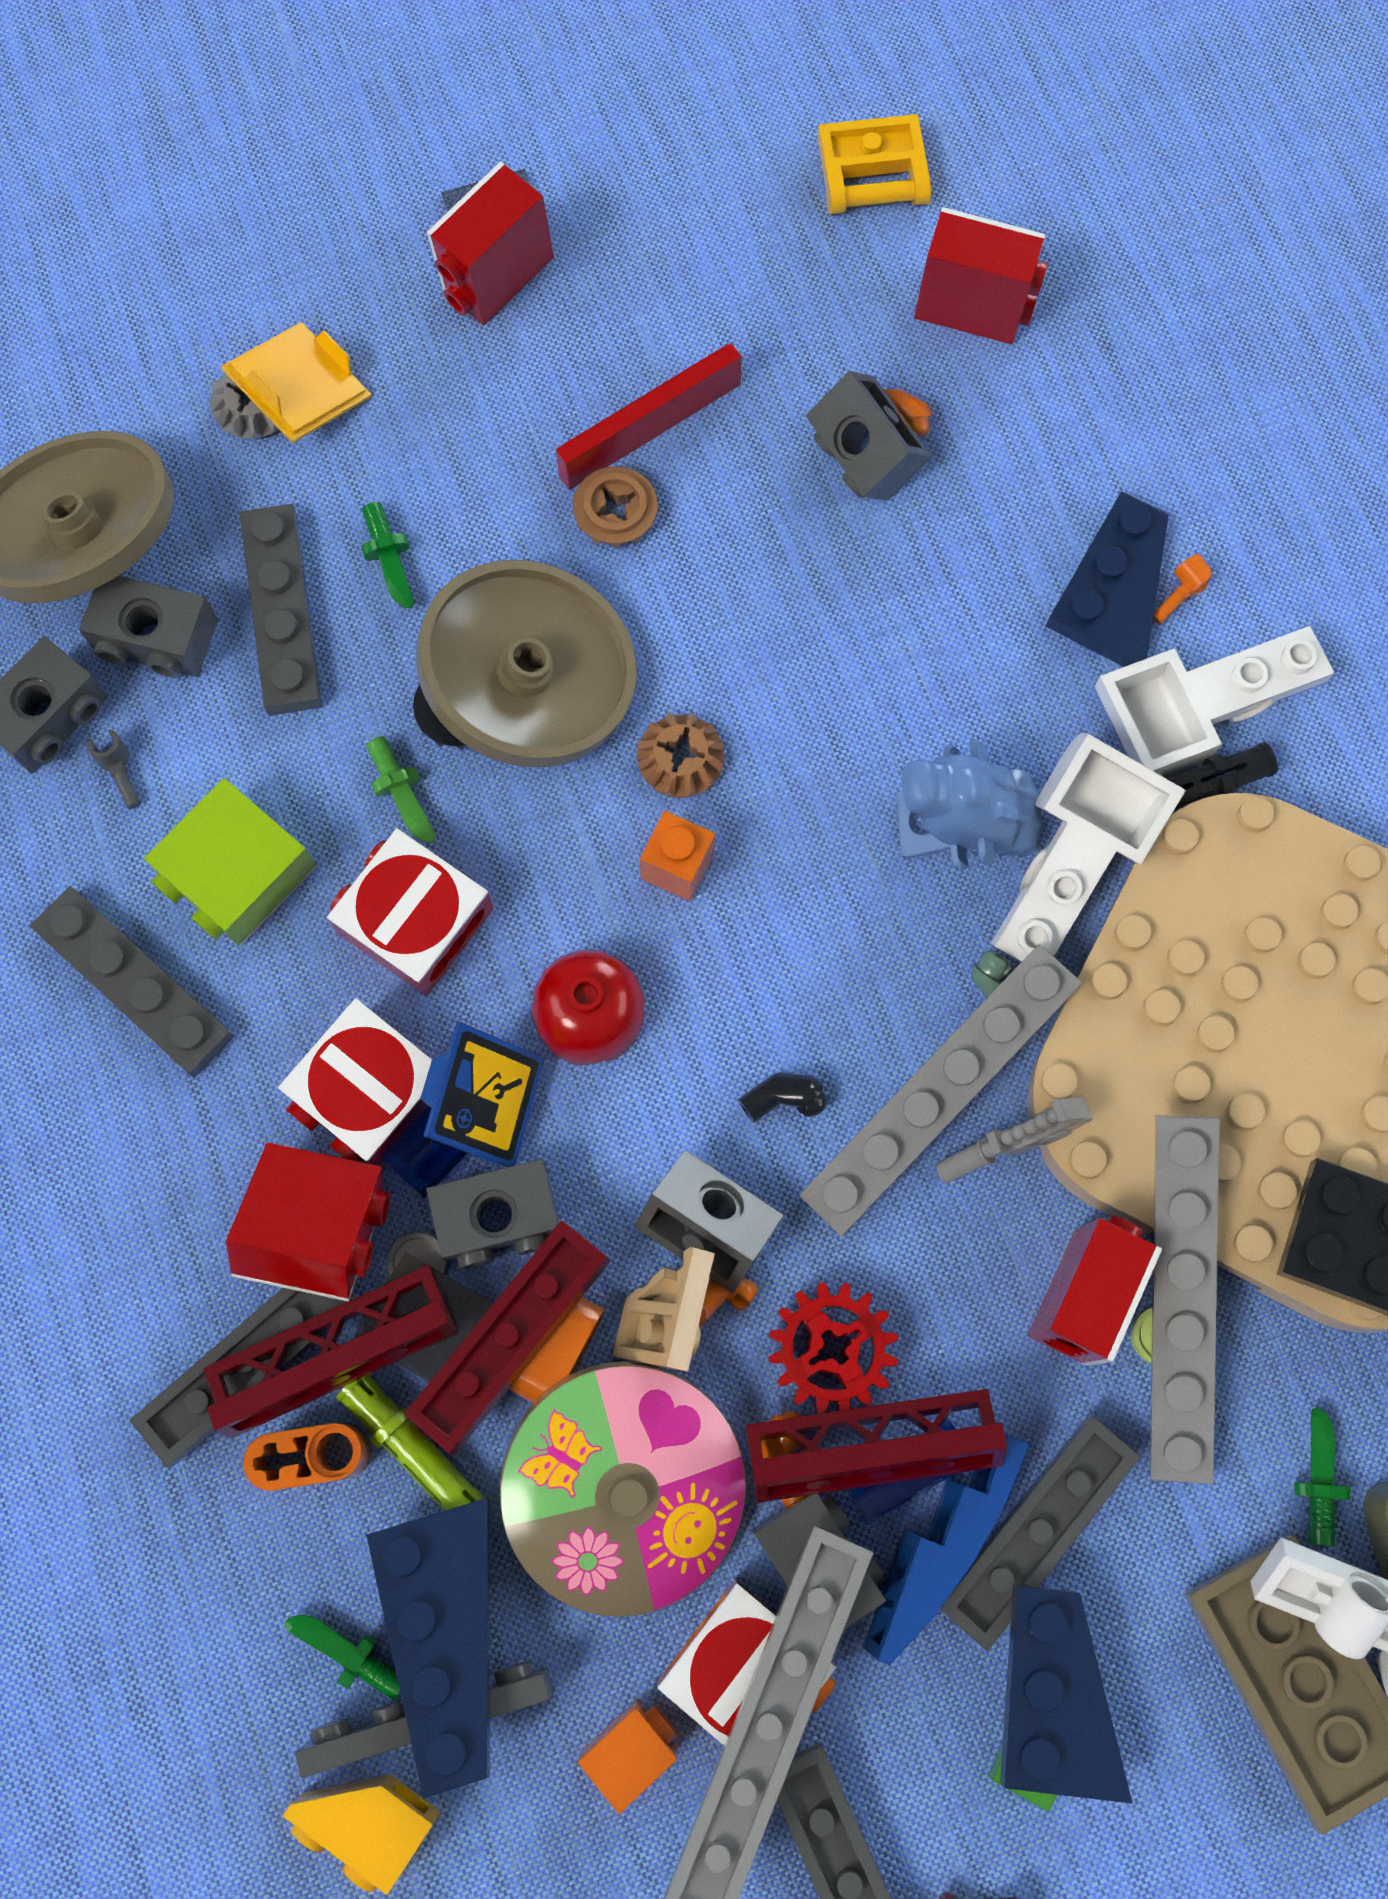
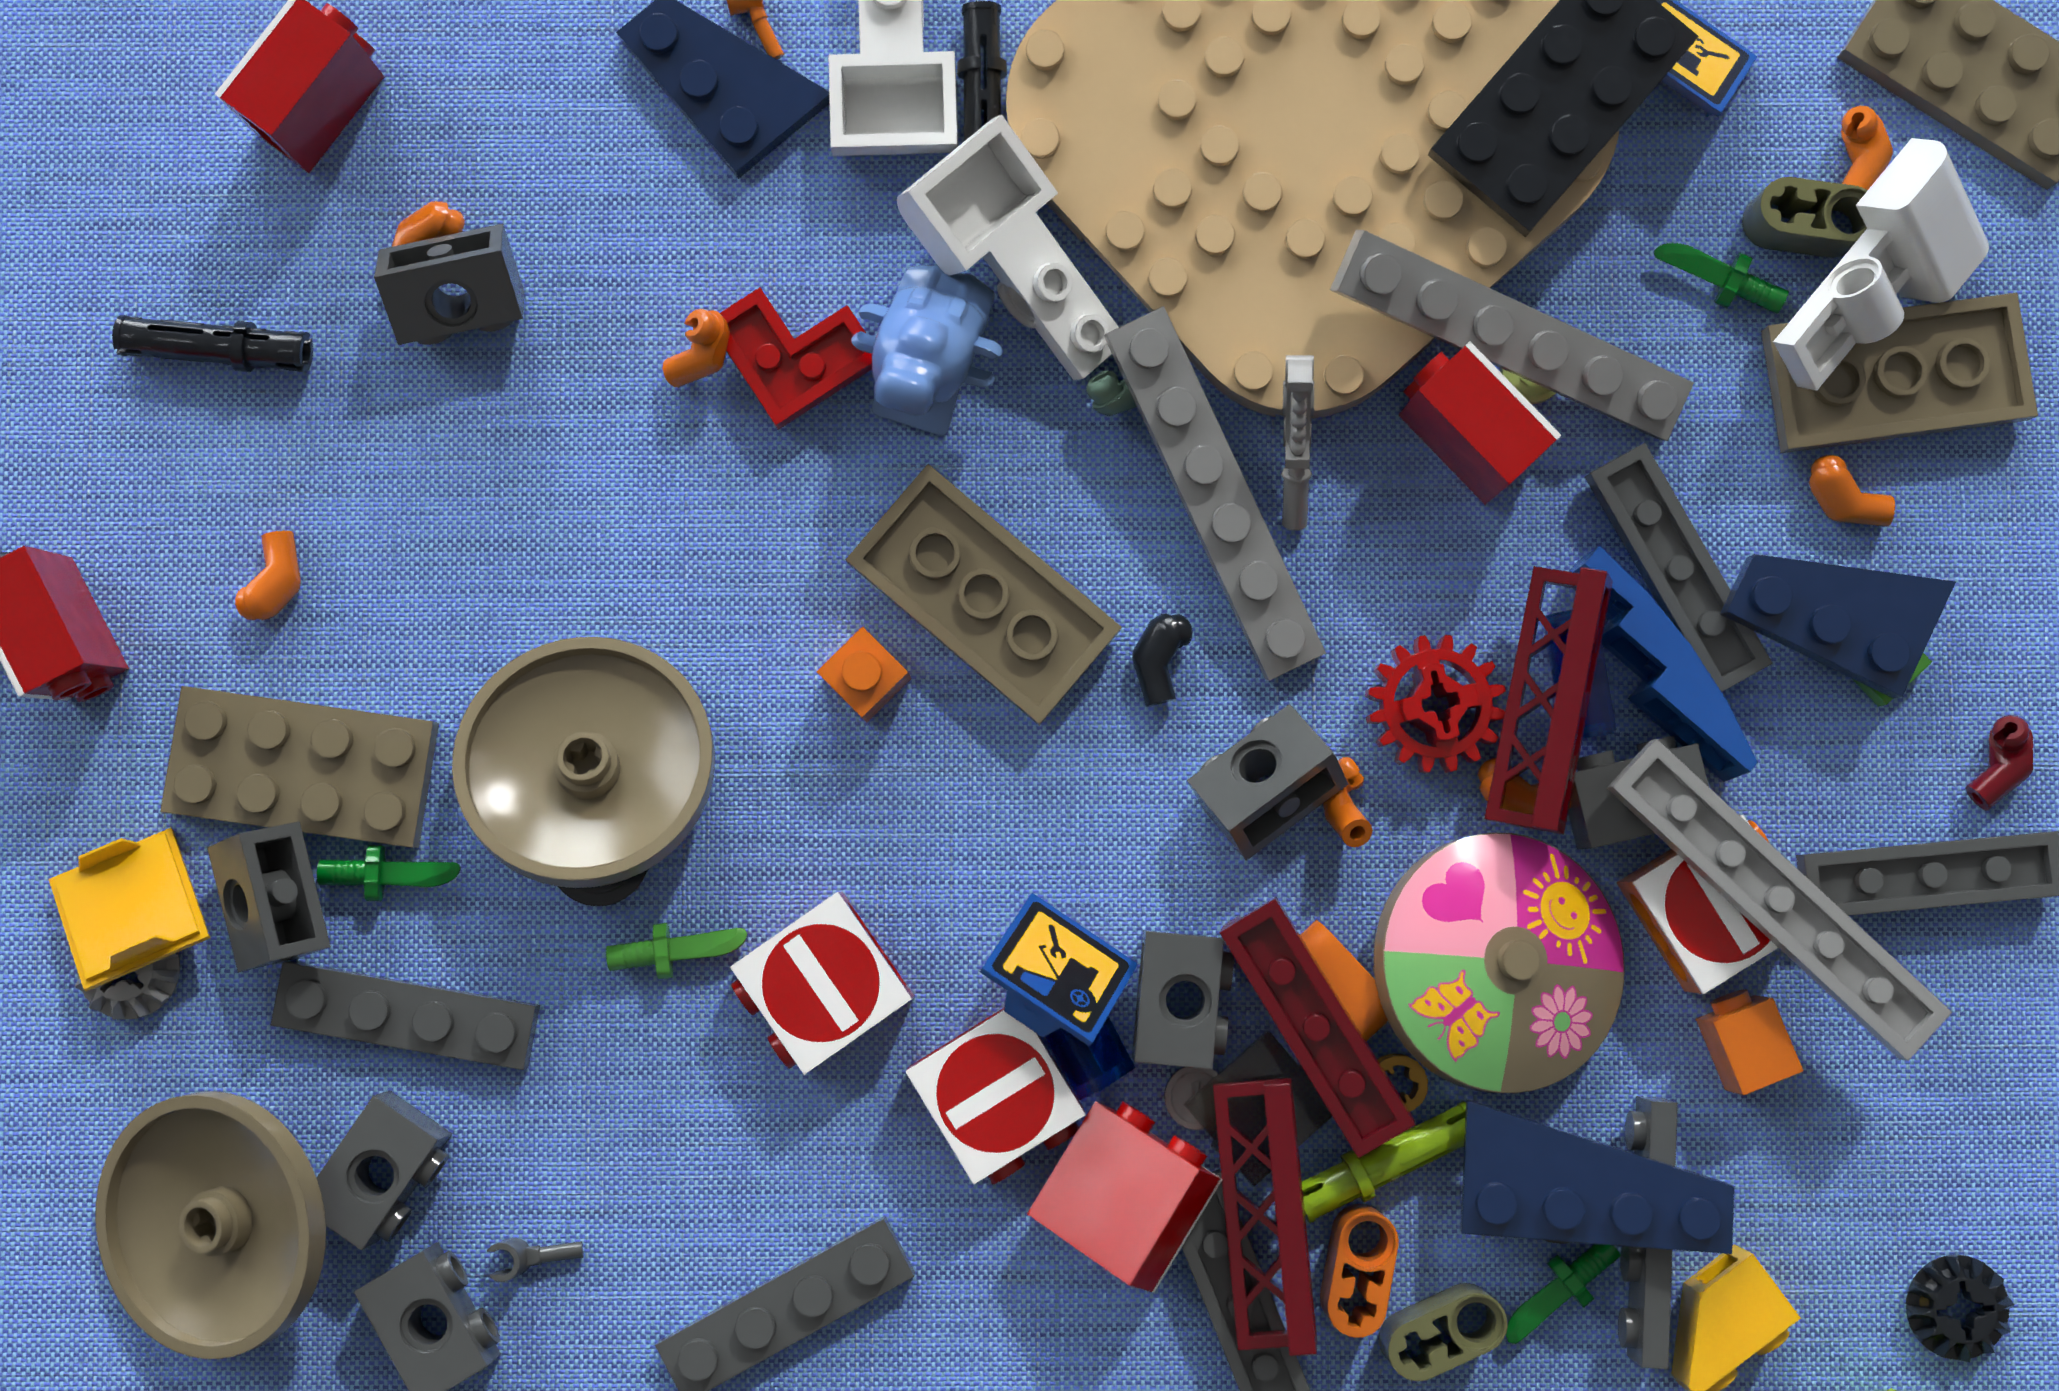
camera: 70 degrees left, 10 degrees up
(229, 864) = (696, 1164): lime piece -> none
(276, 1531) = (1436, 1355): none -> olive beam
(338, 471) = (268, 896): none -> dark grey brick
(450, 468) = (302, 763): none -> dark tan plate
(498, 1447) = (1413, 1072): none -> pearl gold bush
(586, 399) = (275, 583): none -> orange arm
(588, 1007) = (992, 827): red cylinder -> none
(622, 487) = (399, 581): medium nougat gear -> none
(649, 415) = (327, 519): red tile -> none
(664, 1316) = (1353, 862): tan wing -> none
(695, 773) = (748, 659): medium nougat gear -> none
(759, 310) = (237, 345): none -> black pin
(780, 932) = (983, 594): none -> dark tan plate
(873, 149) = (76, 138): yellow plate -> none
(887, 643) = (707, 349): none -> orange arm
(904, 710) = (789, 372): none -> red plate
(1166, 1667) = (1842, 498): none -> orange arm

